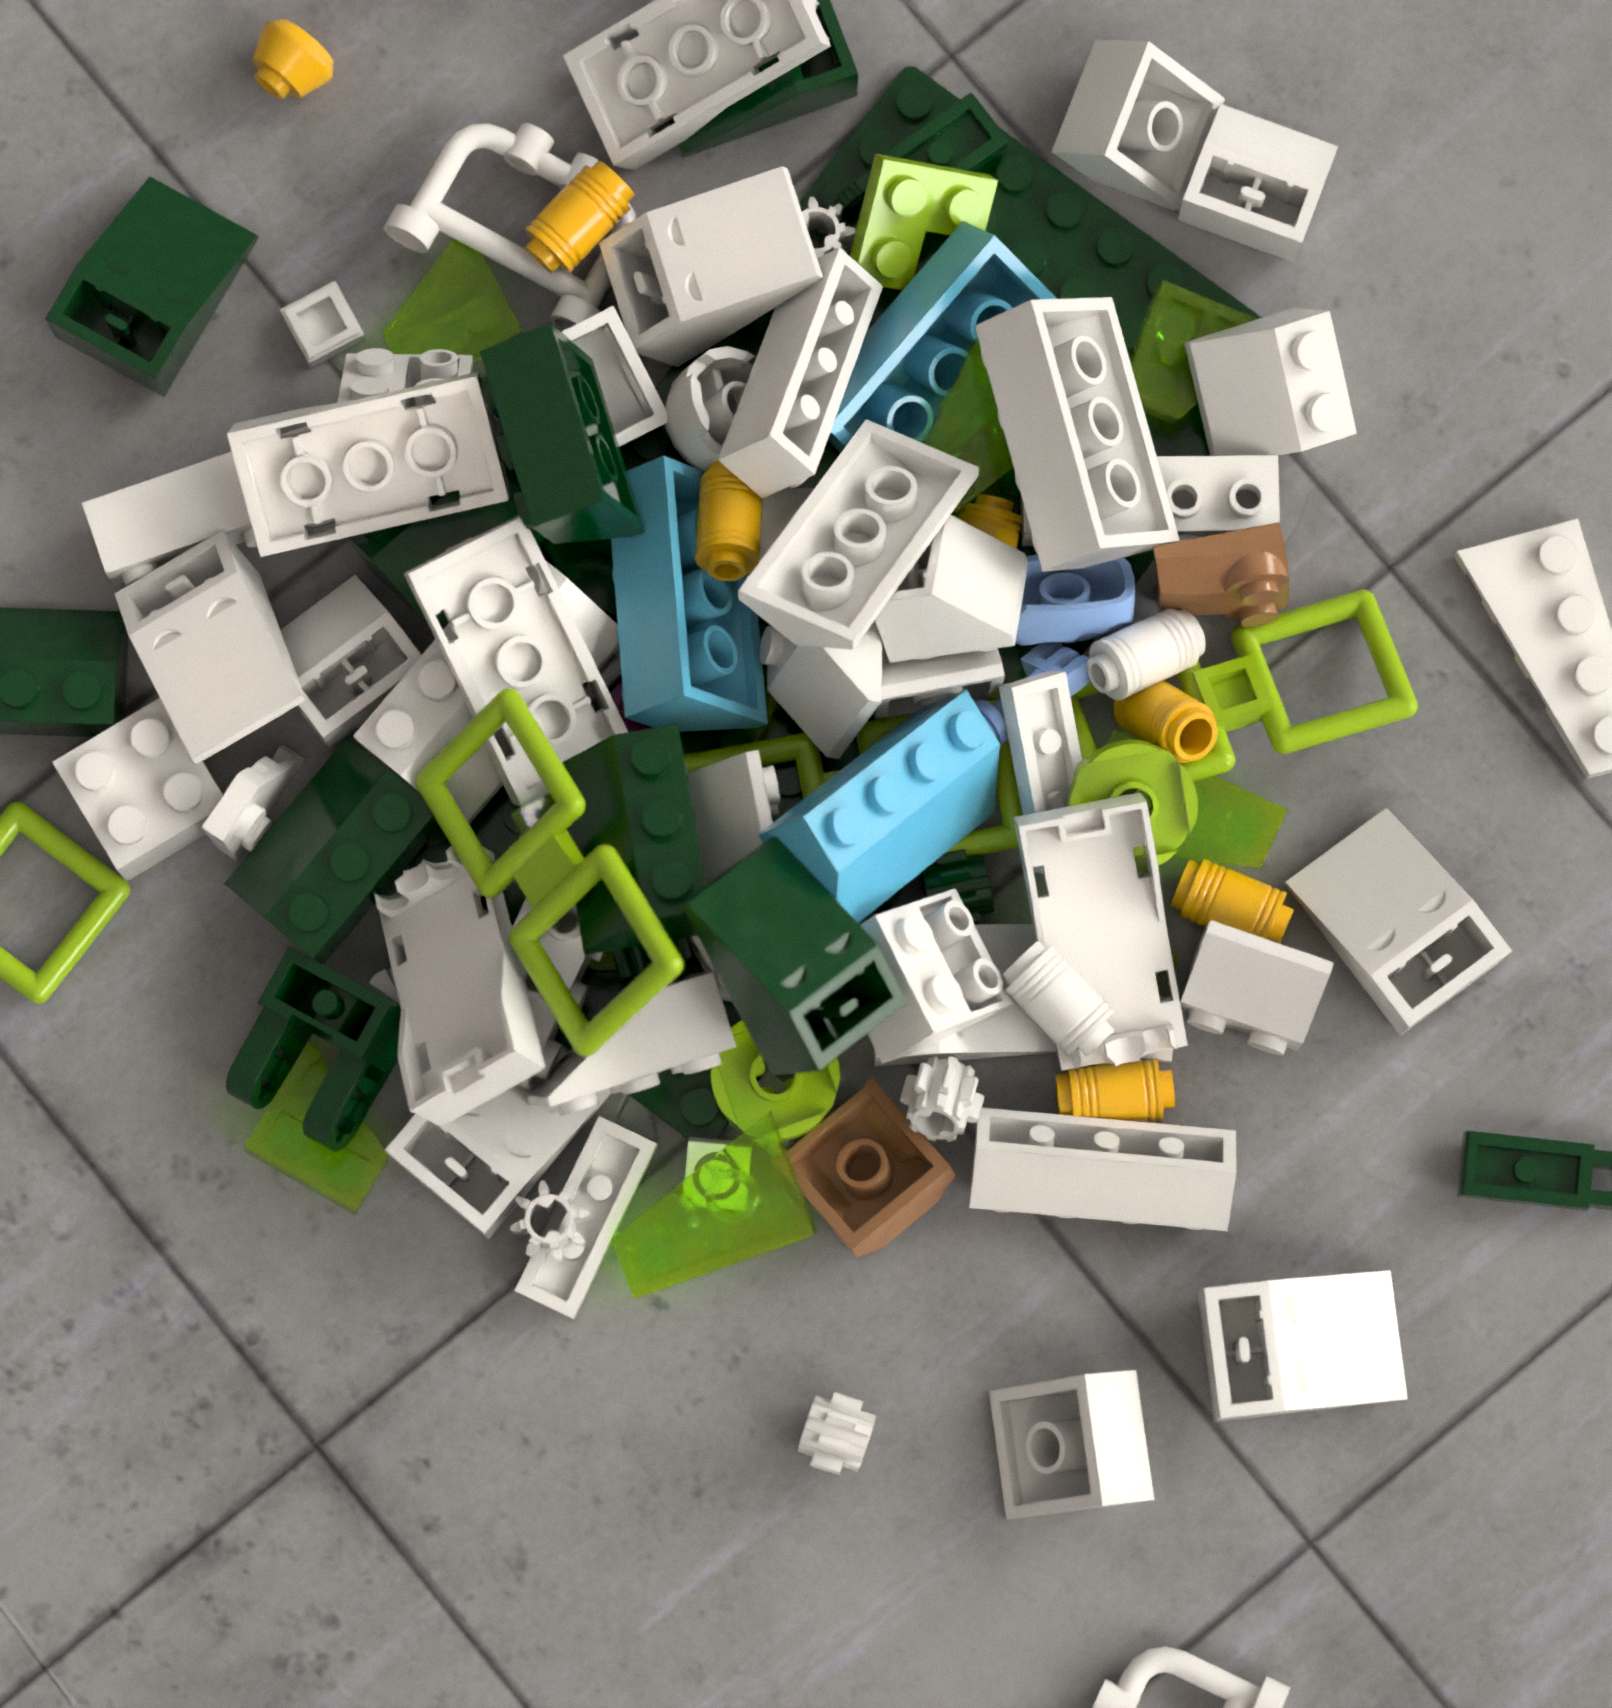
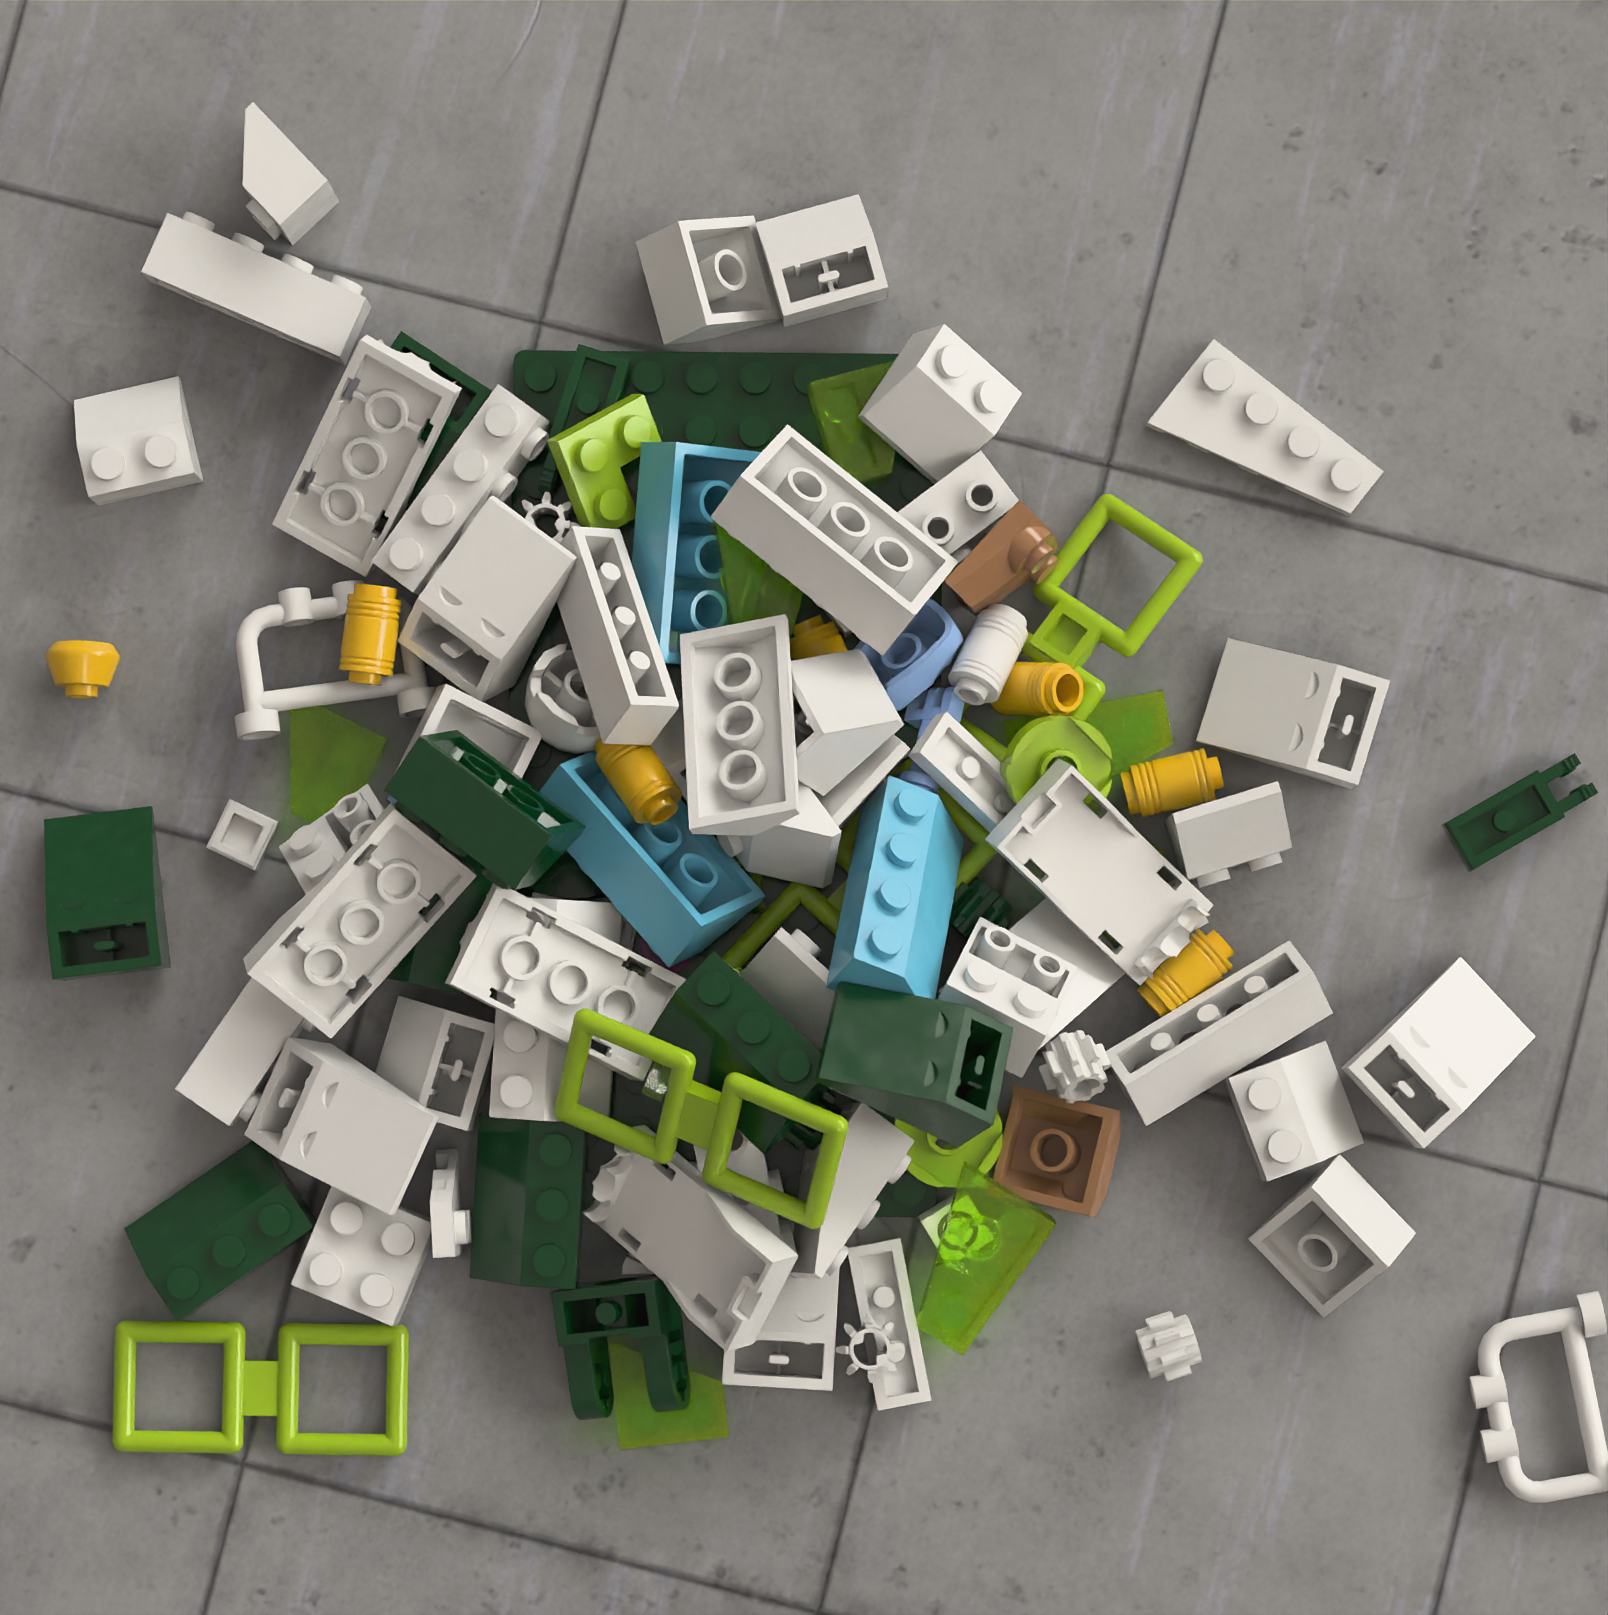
camera: 30 degrees left, 5 degrees up
(807, 132) = (478, 466): none -> white brick
(1059, 999) = (1108, 942): white head -> none
(1122, 1298) = (1293, 1111): none -> white slope

